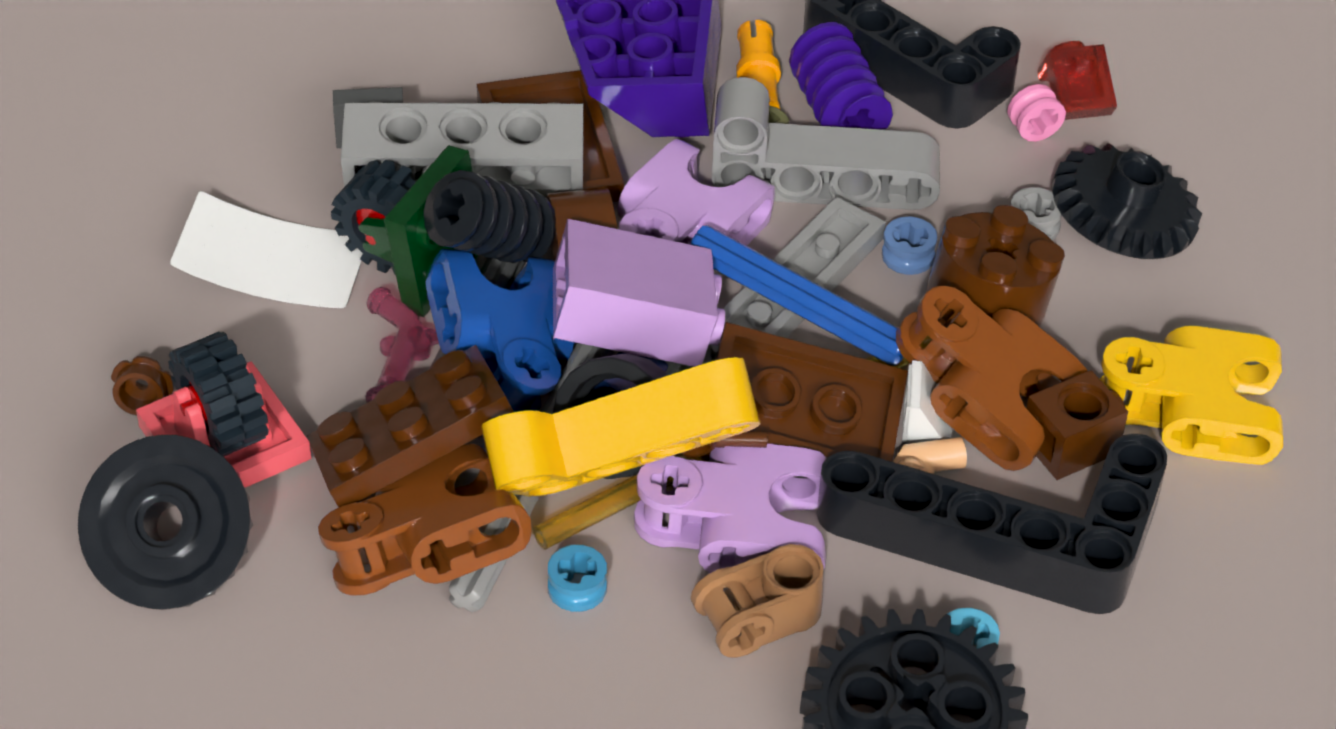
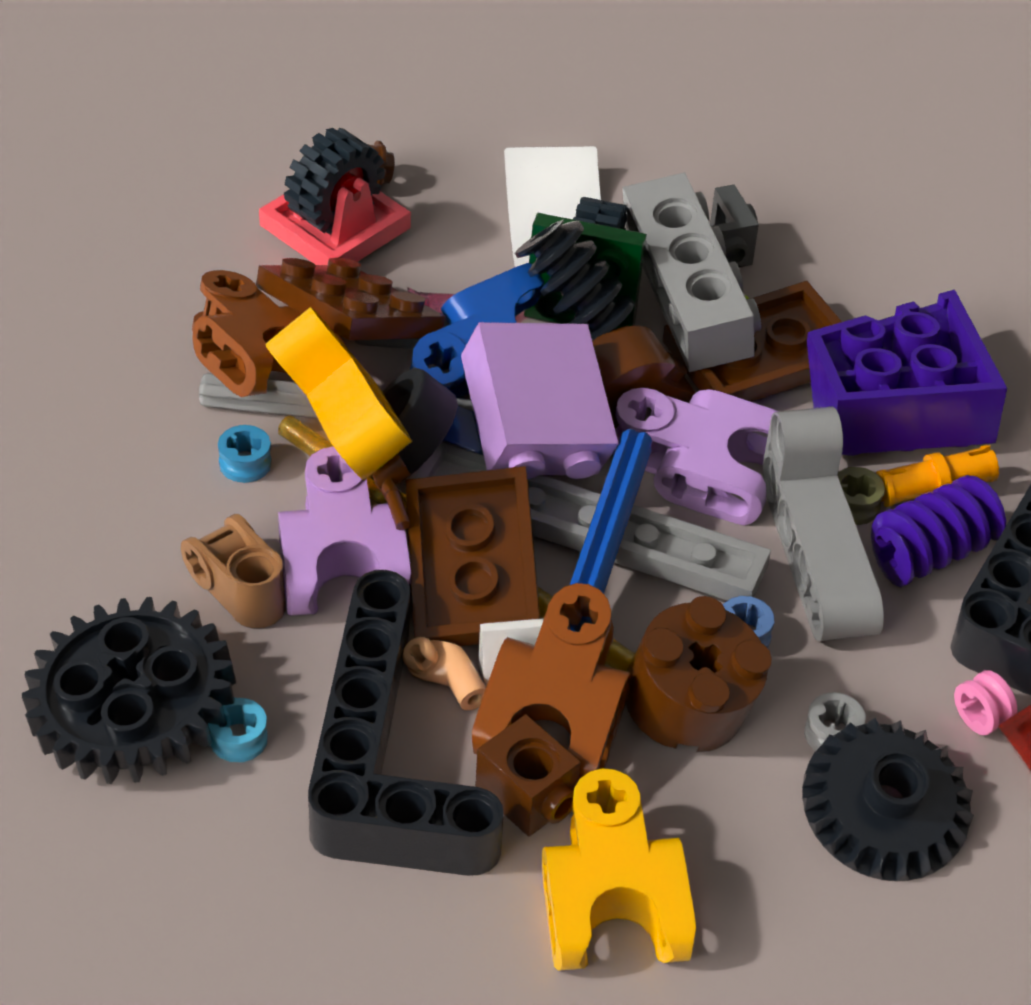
camera: 75 degrees right, 0 degrees up
(123, 511) = (214, 194): black gear -> none

